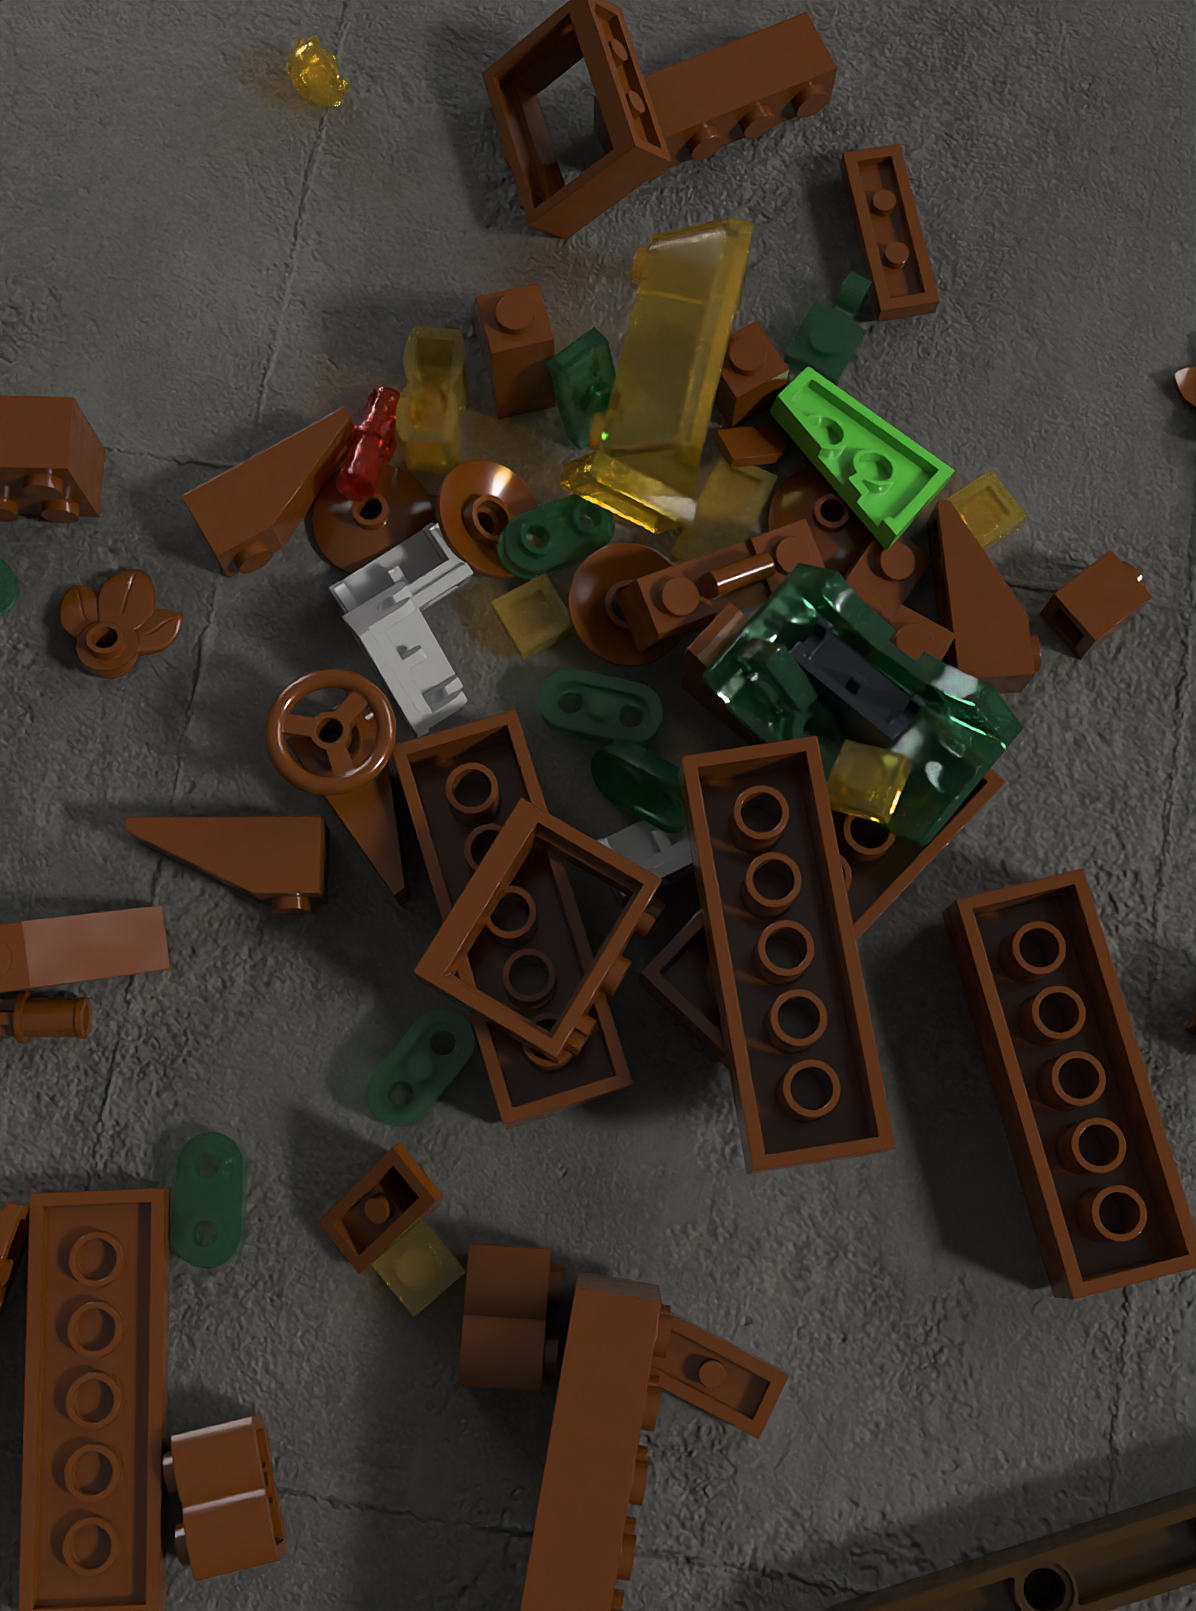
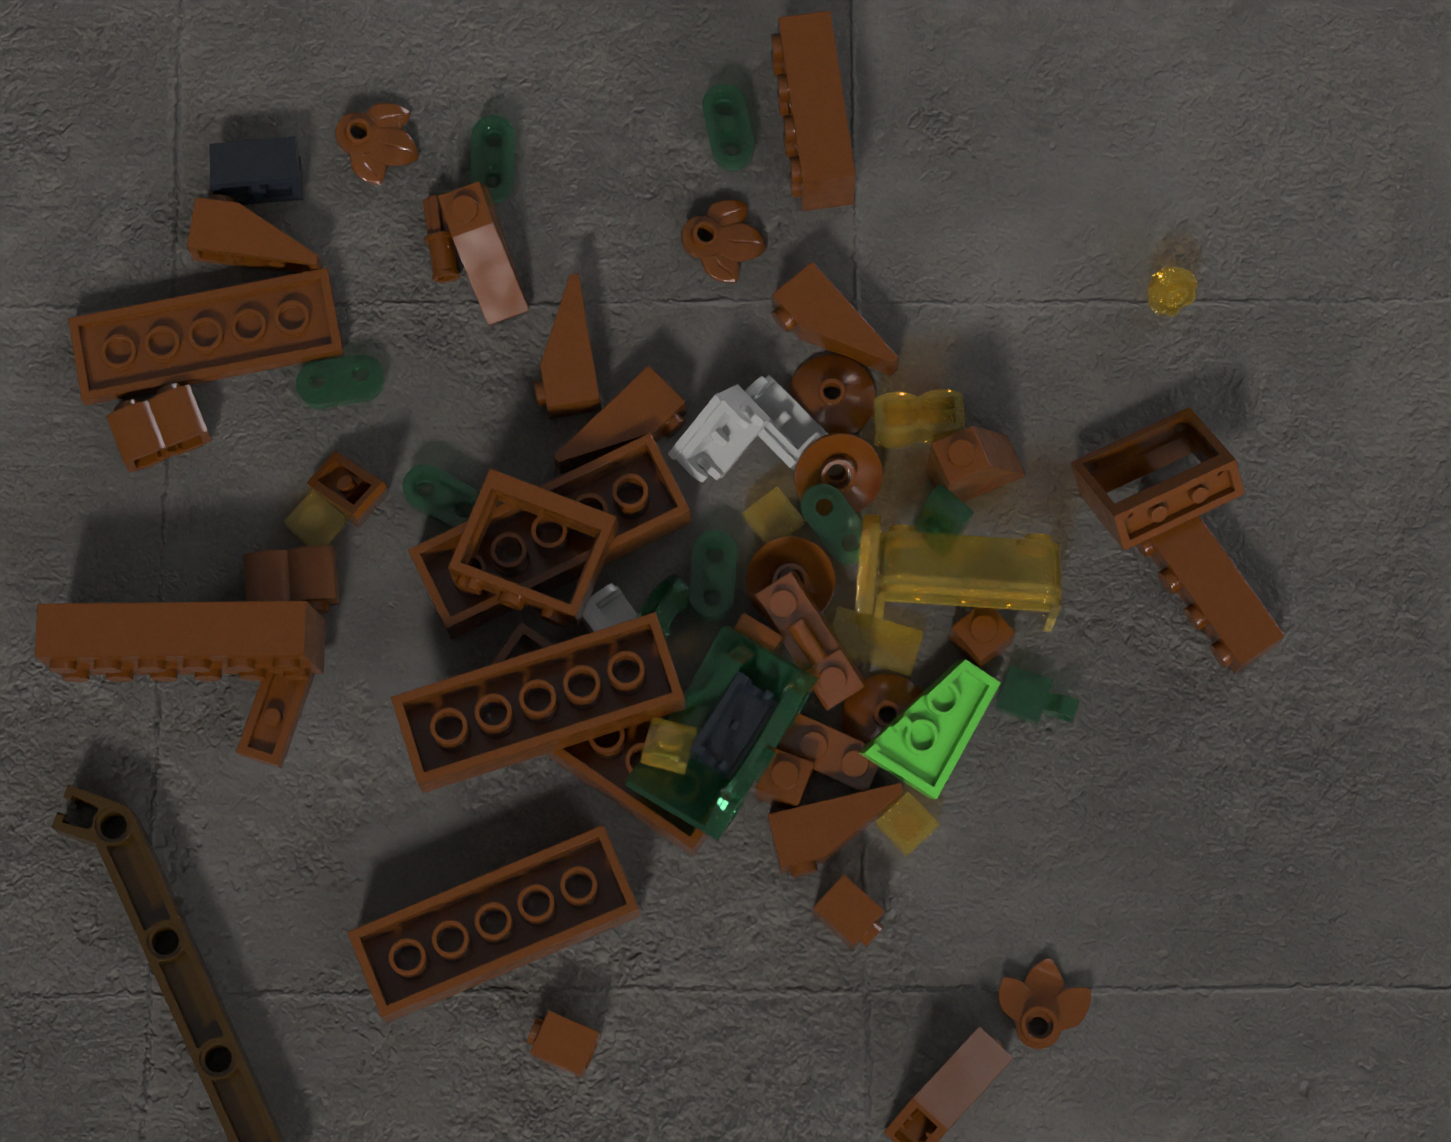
camera: 85 degrees right, 0 degrees up
(334, 755) = (651, 406): reddish brown piece -> none
(370, 446) = (877, 381): clear red pin -> none
(750, 445) = (931, 651): reddish brown piece -> none
(889, 232) = (1123, 728): reddish brown plate -> none

